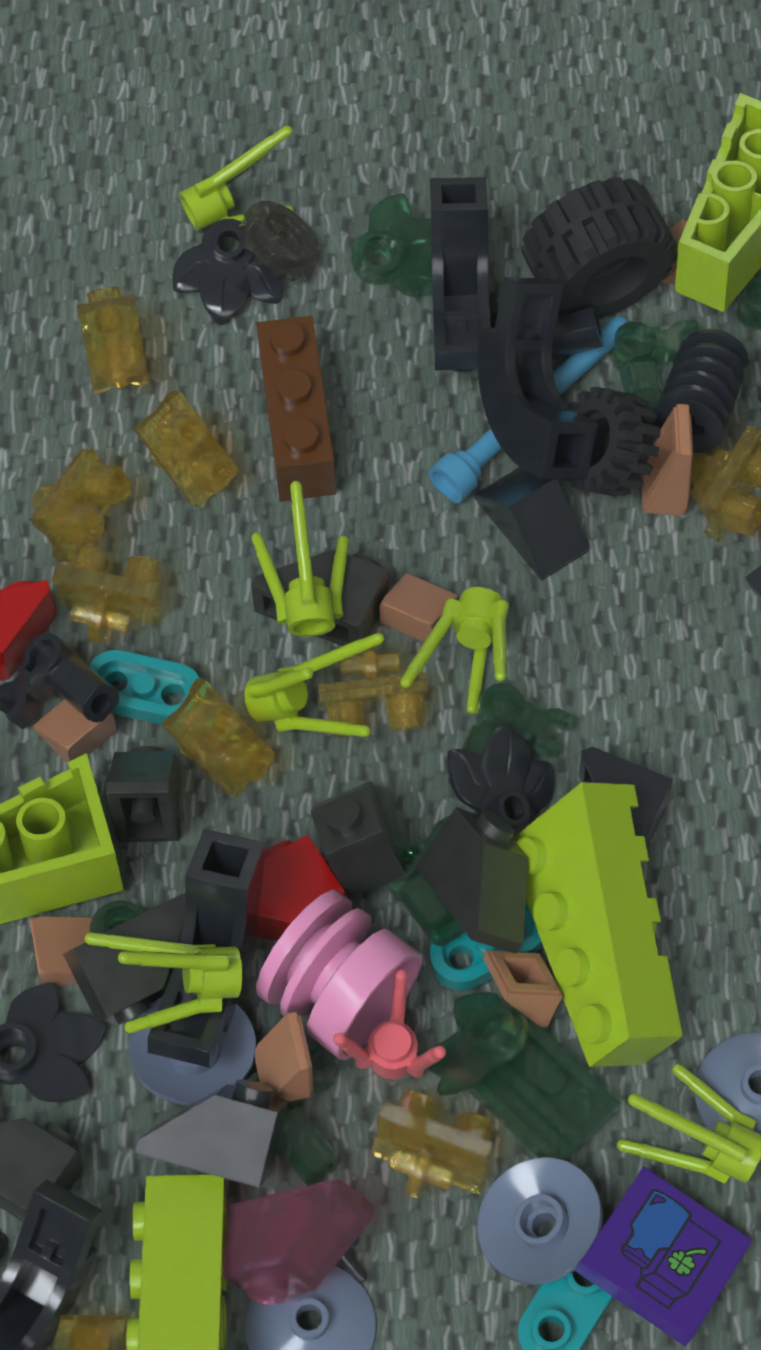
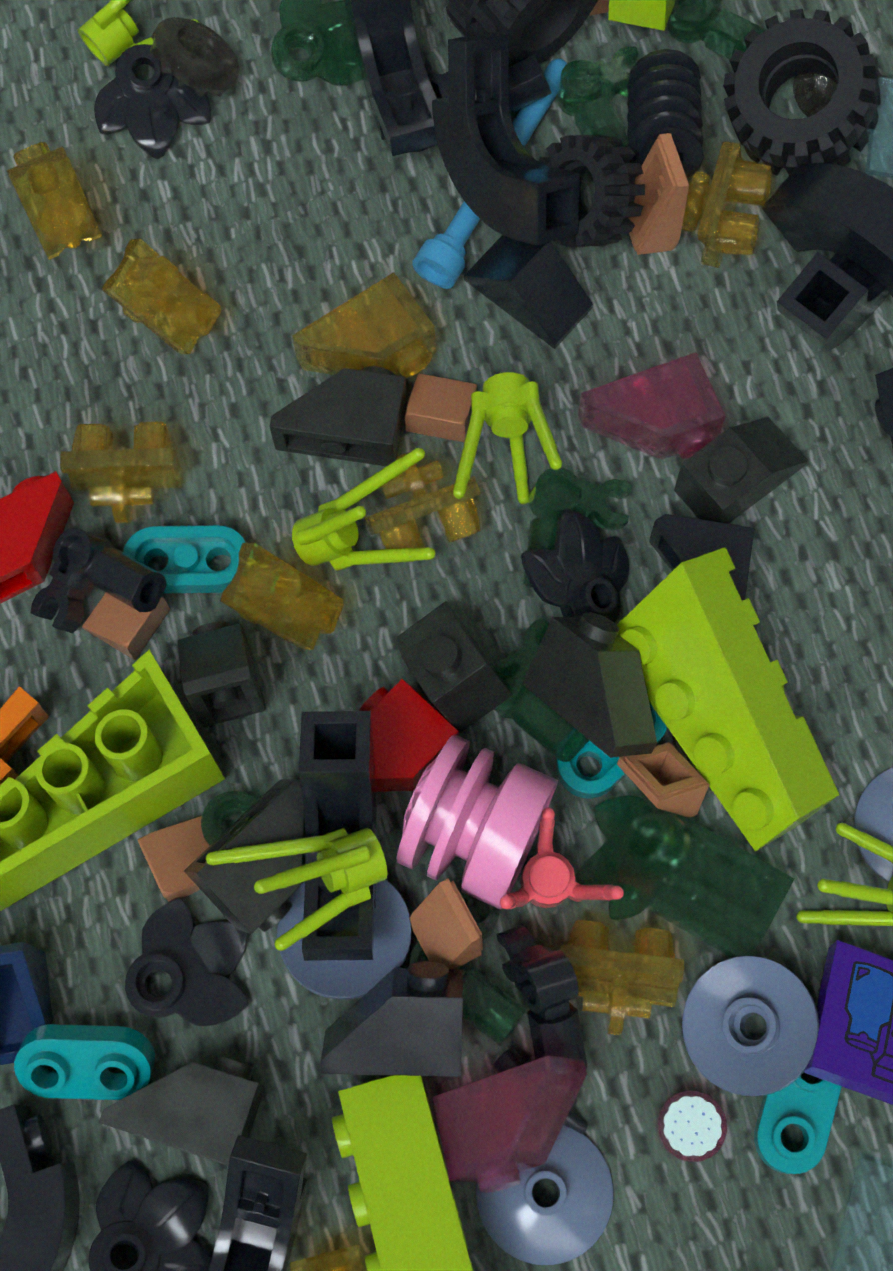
camera: 15 degrees left, 10 degrees up
(75, 505) = (61, 385): clear yellow hips -> none
(296, 407) = (261, 227): reddish brown brick -> none
(308, 605) = (336, 434): lime plant -> none
(359, 1133) = (547, 986): none -> black bar
(378, 522) = (371, 329): none -> clear yellow slope
(461, 1300) = (691, 1126): none -> light aqua tile
(616, 655) = (657, 410): none -> clear pink slope
(679, 726) = (737, 470): none -> pearl dark grey slope

